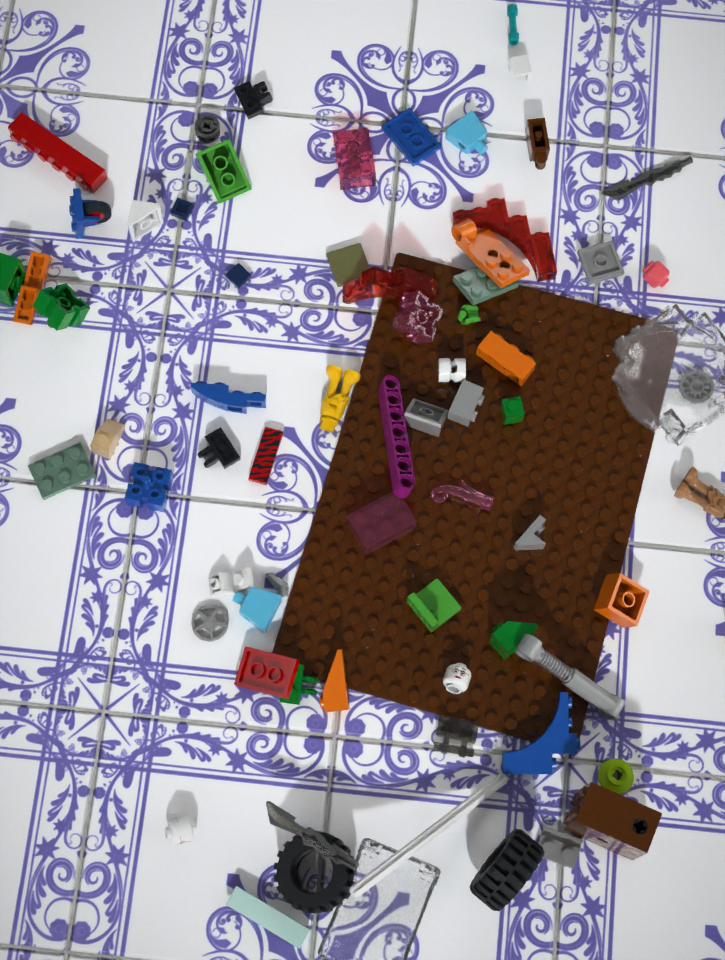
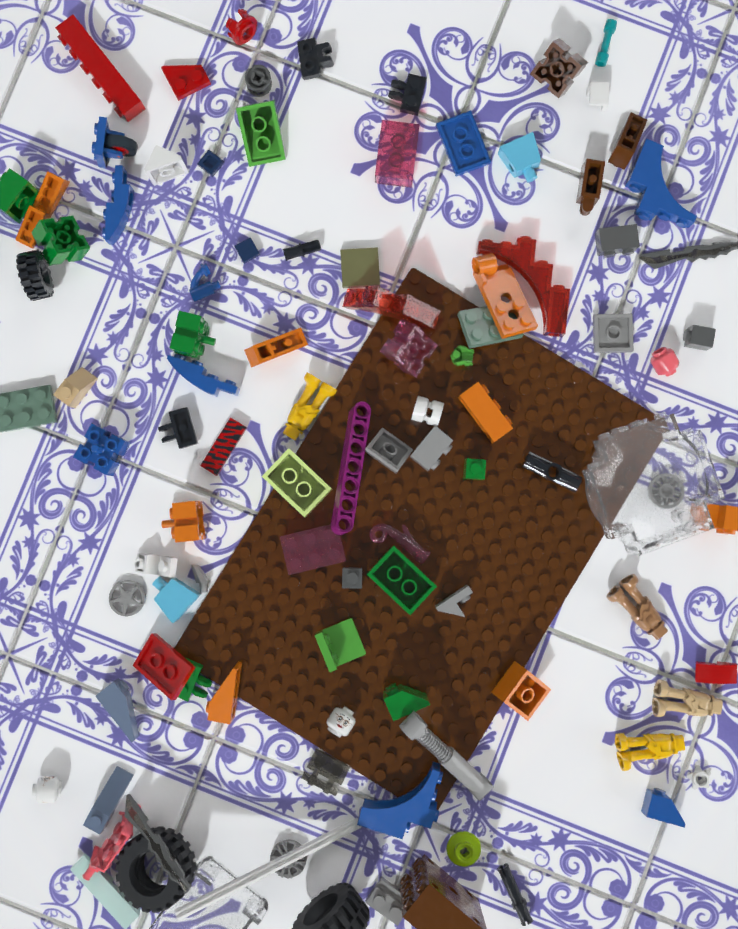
camera: 20 degrees right, 15 degrees up
(45, 342) = (34, 275): none -> black bush
(106, 268) = (119, 210): none -> blue slope
(138, 144) = (185, 79): none -> red wing
(181, 89) = (247, 24): none -> red piece
(207, 320) = (204, 290): none -> blue plant
(208, 359) = (189, 335): none -> green brick
(228, 722) = (119, 705): none -> sand blue slope
(246, 823) = (108, 800): none -> sand blue slope
(251, 529) = (186, 521): none -> orange brick
(265, 863) = (102, 857): none -> coral plate
(289, 262) = (302, 249): none -> black axle
(289, 353) = (275, 347): none -> orange slope
(348, 464) = (296, 482): none -> yellowish green brick
(352, 107) = (412, 95): none -> black hinge
(426, 538) = (352, 577): none -> dark grey brick
(446, 836) = (302, 862): none -> light grey wheel
(474, 527) = (401, 580): none -> green brick
(478, 53) = (558, 68): none -> reddish brown brick
(559, 99) = (627, 141): none -> reddish brown slope
(573, 392) = (563, 476): none -> black piece
(577, 182) = (617, 240): none -> dark grey brick
(600, 139) = (655, 199): none -> blue arch
(680, 246) = (699, 337): none -> dark grey brick
(680, 804) = (518, 902): none -> black pin

